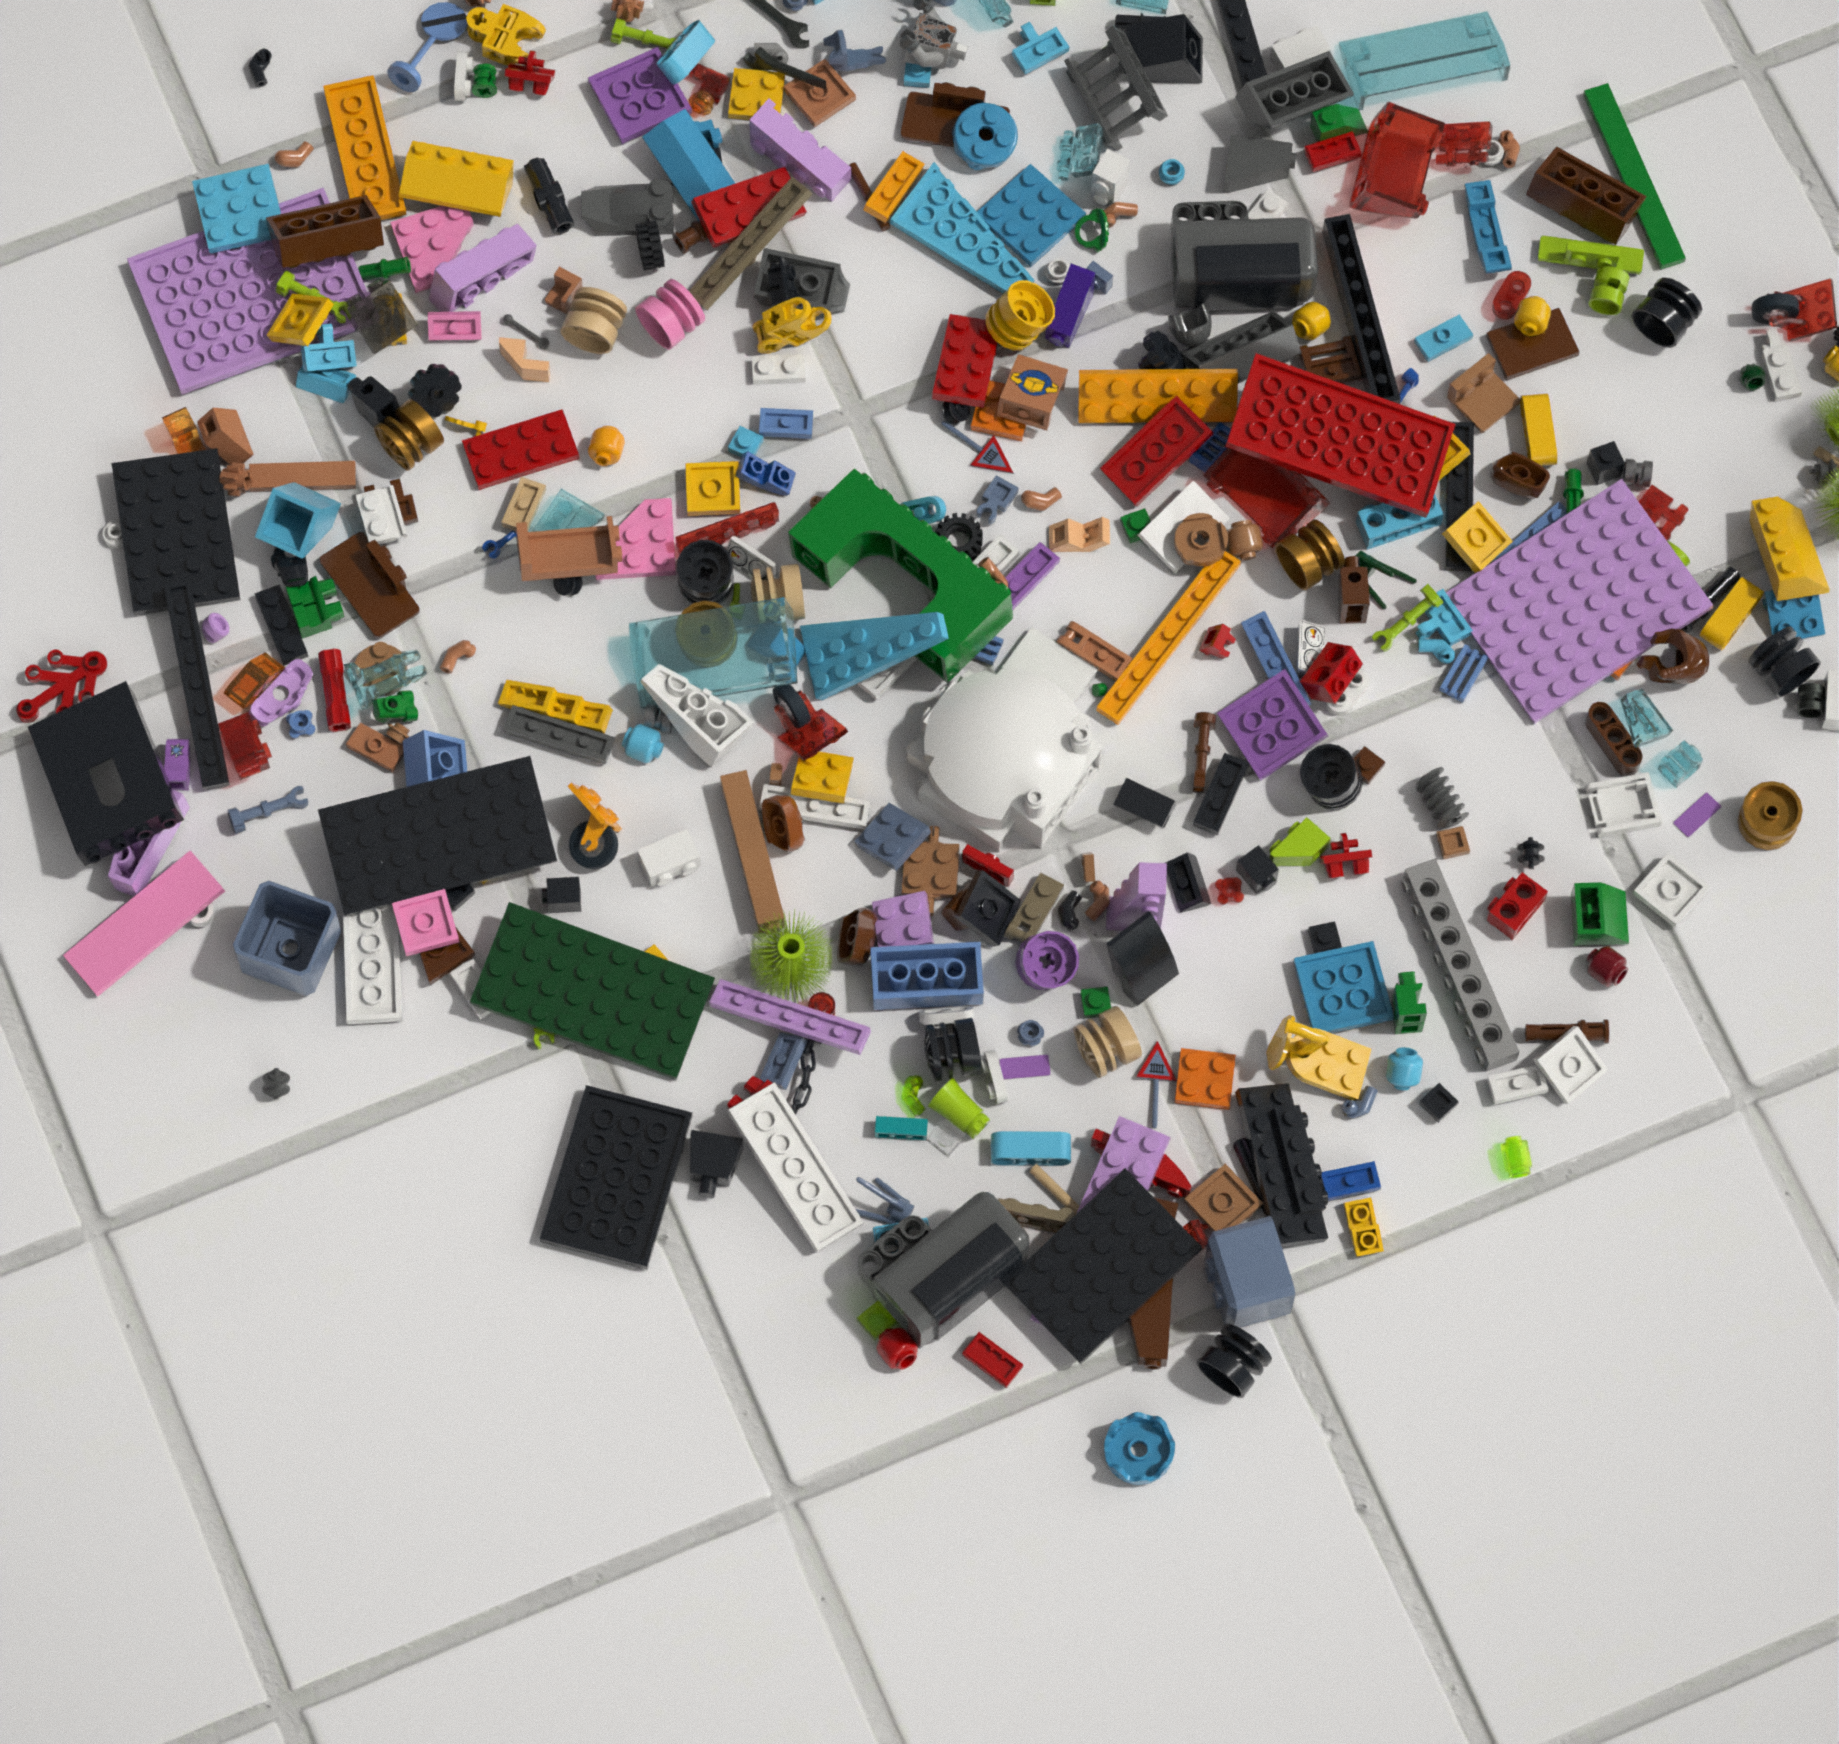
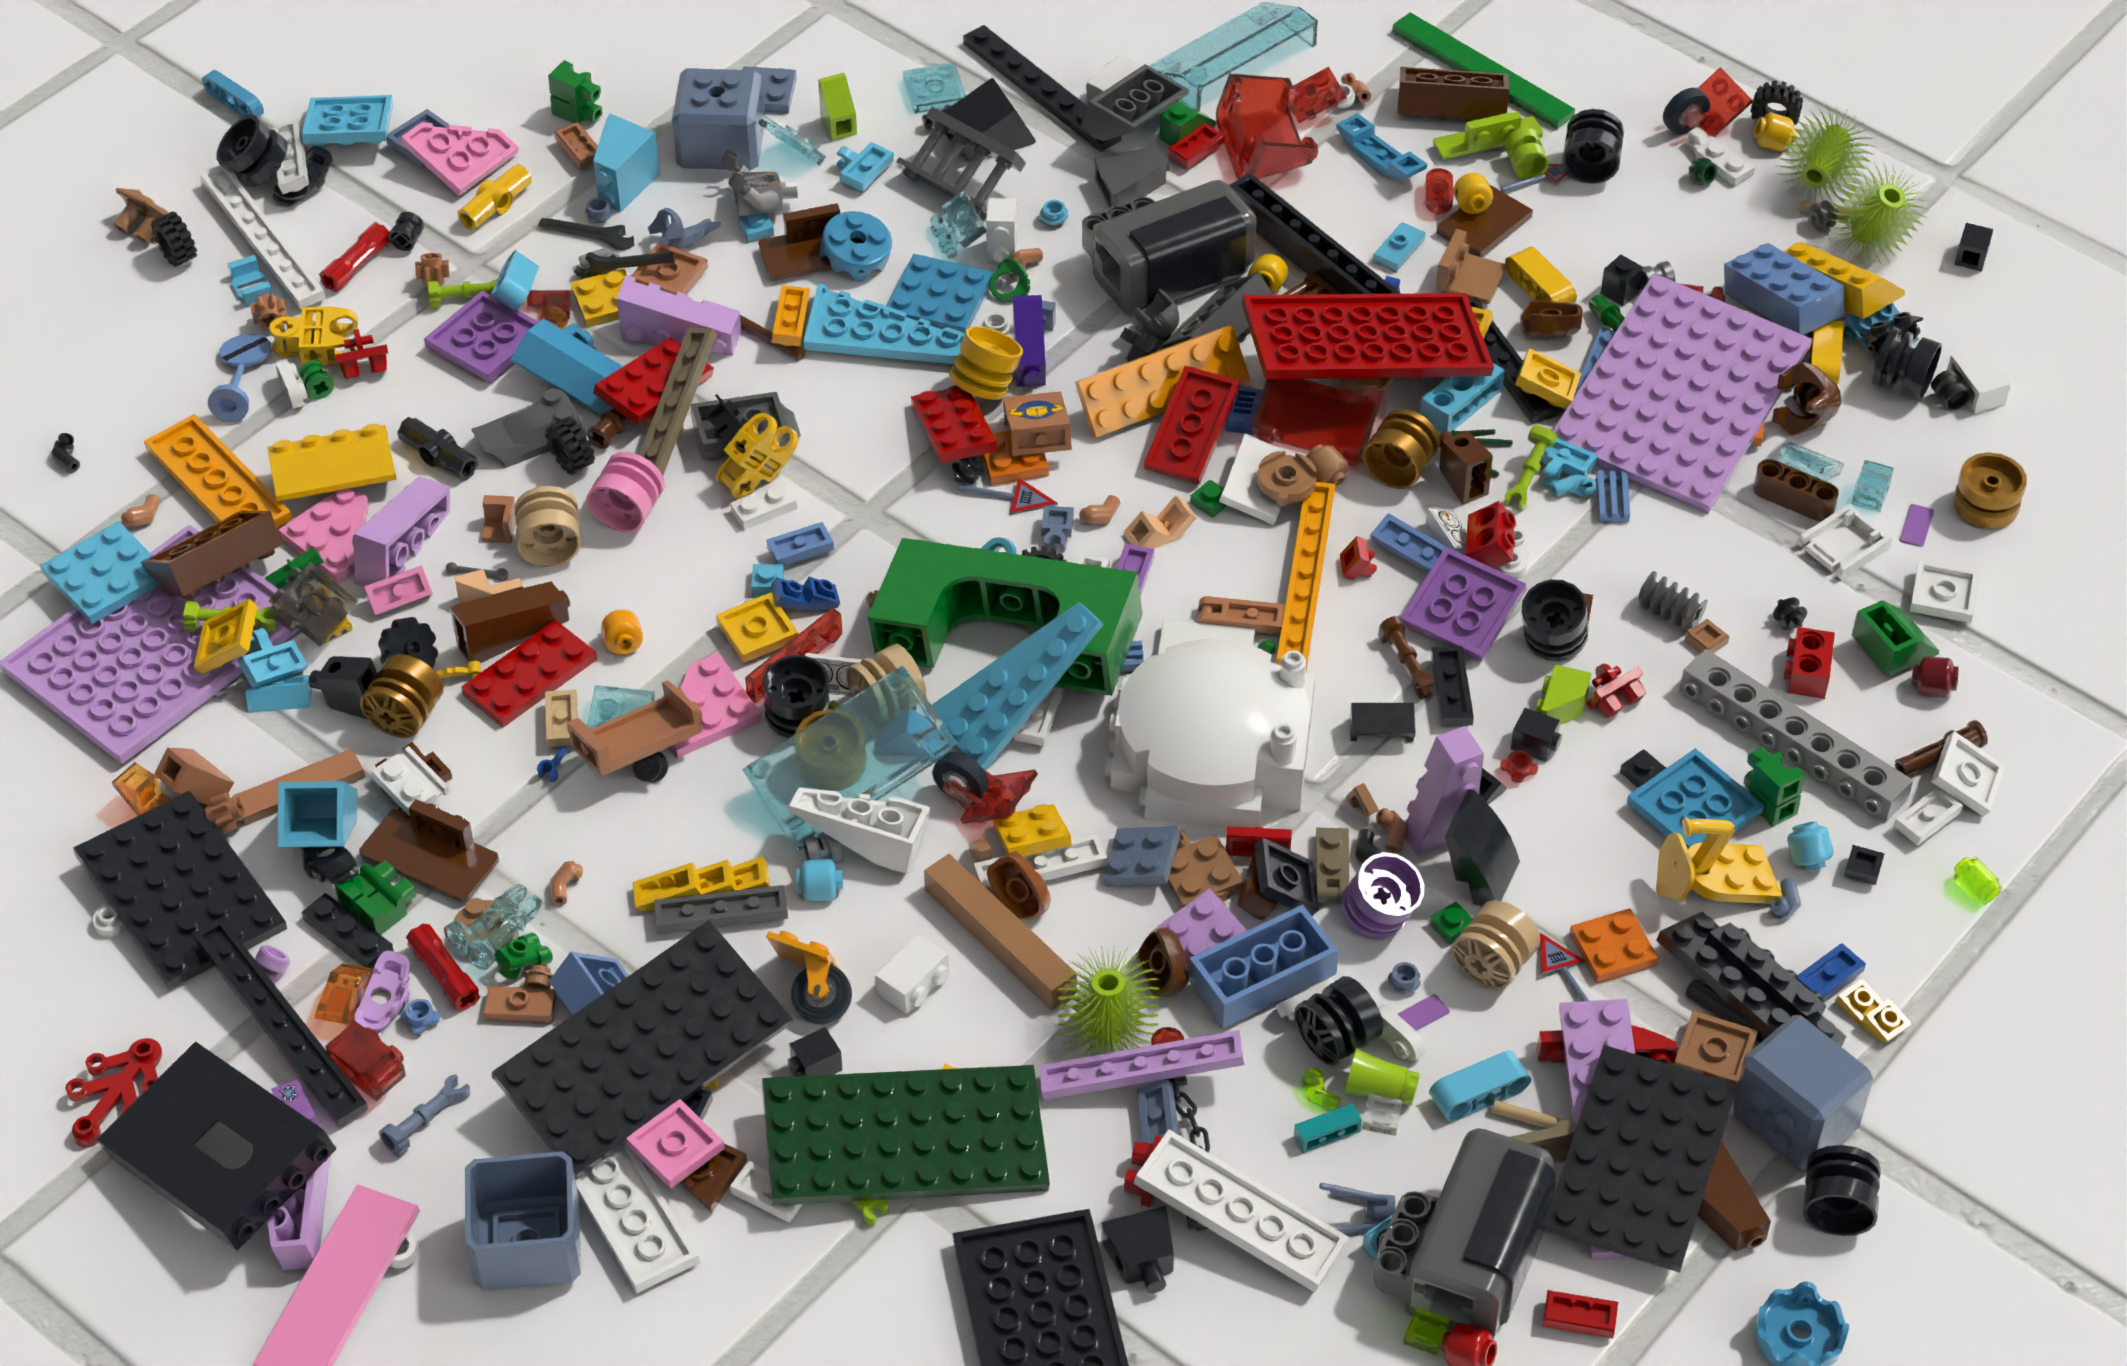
camera: 25 degrees left, 20 degrees down
(524, 396) = (506, 619): none -> reddish brown slope
(1624, 318) = (1555, 174): none -> sand blue piece
(1730, 539) = (1784, 289): none -> medium blue brick
(1807, 621) = (1879, 331): none -> black hinge

